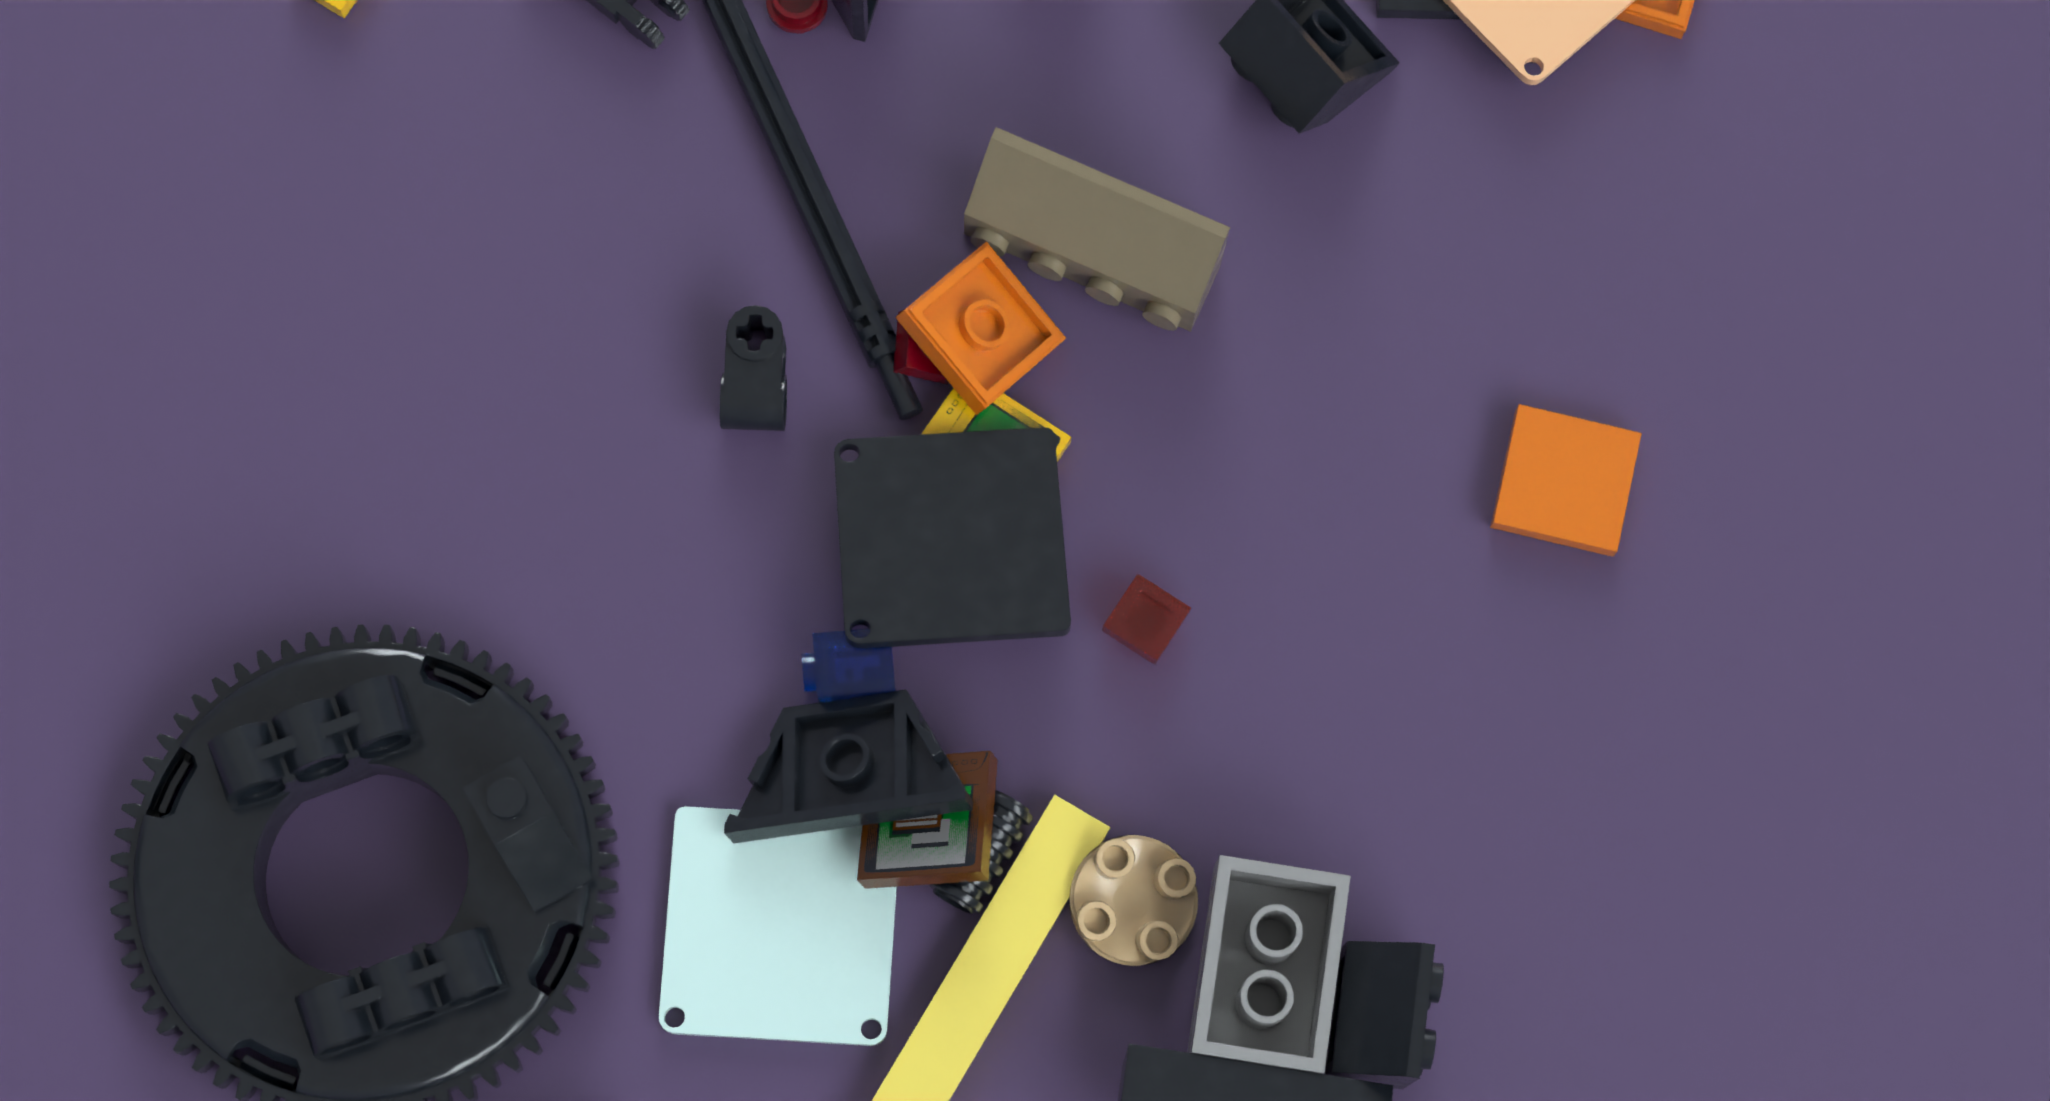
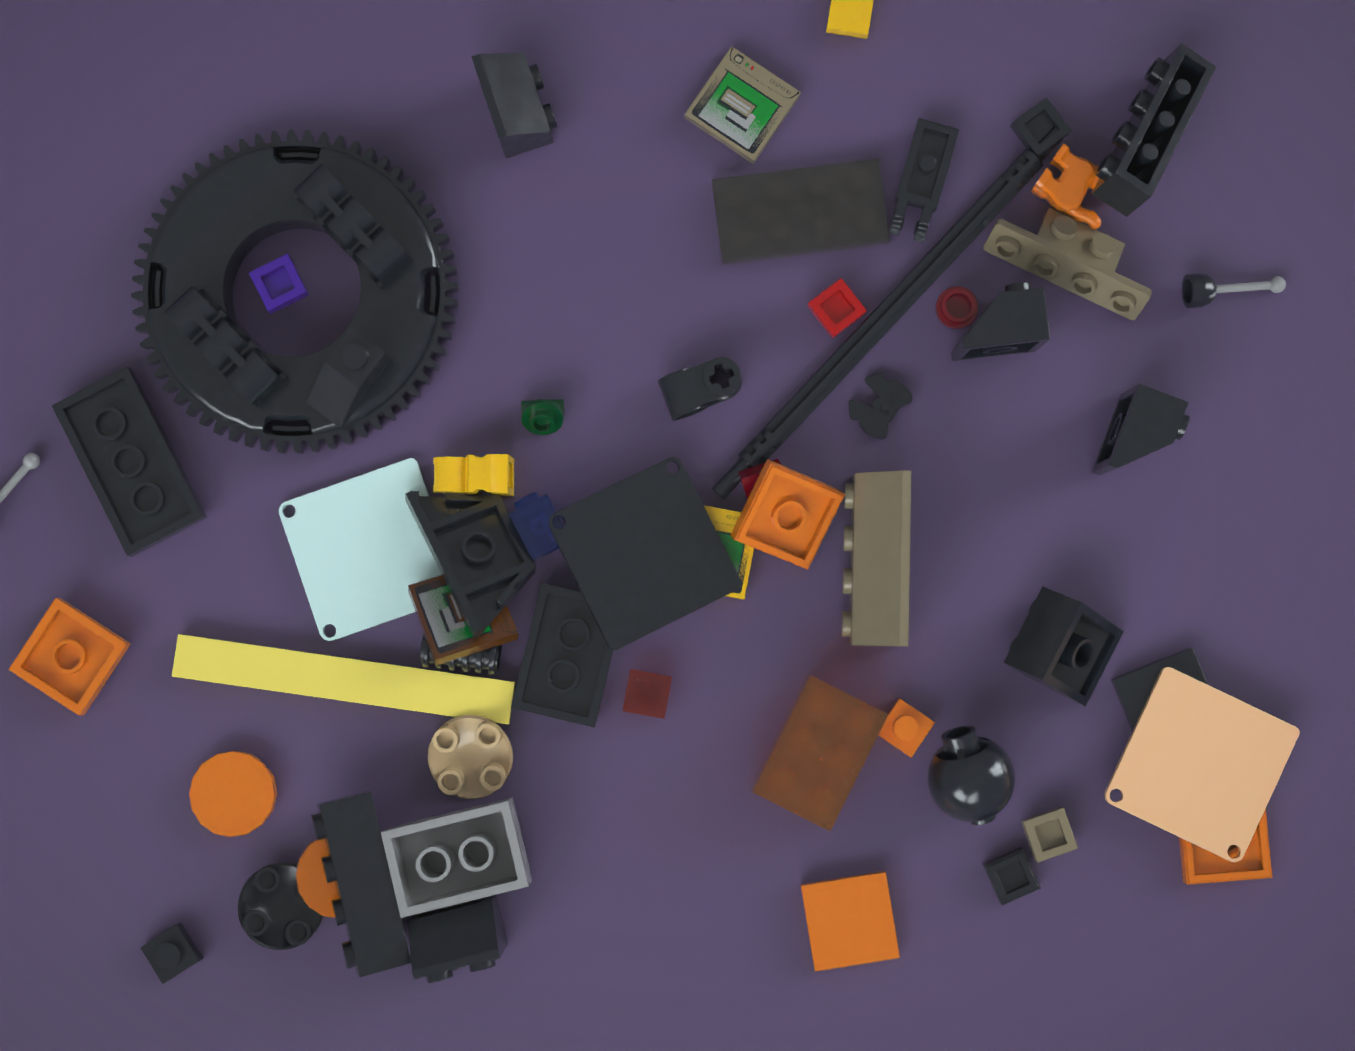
camera: 80 degrees right, 10 degrees up
(243, 458) = (514, 101): none -> black slope
(349, 875) = (279, 283): none -> dark purple plate
(392, 163) = (742, 105): none -> tile
(573, 150) = (800, 211): none -> clear smoke plate
(697, 604) = (542, 415): none -> dark green plate
(728, 153) = (836, 308): none -> red plate
(739, 729) = (473, 473): none -> yellow leg
(900, 168) = (891, 398): none -> black piece
(1050, 711) = (563, 660): none -> black plate
(1321, 420) = (819, 752): none -> clear orange brick
(1333, 302) = (905, 727): none -> orange plate
(1435, 234) = (970, 776): none -> black brick
(1551, 174) = (1049, 834): none -> dark tan plate
(1587, 247) = (1011, 876): none -> black tile

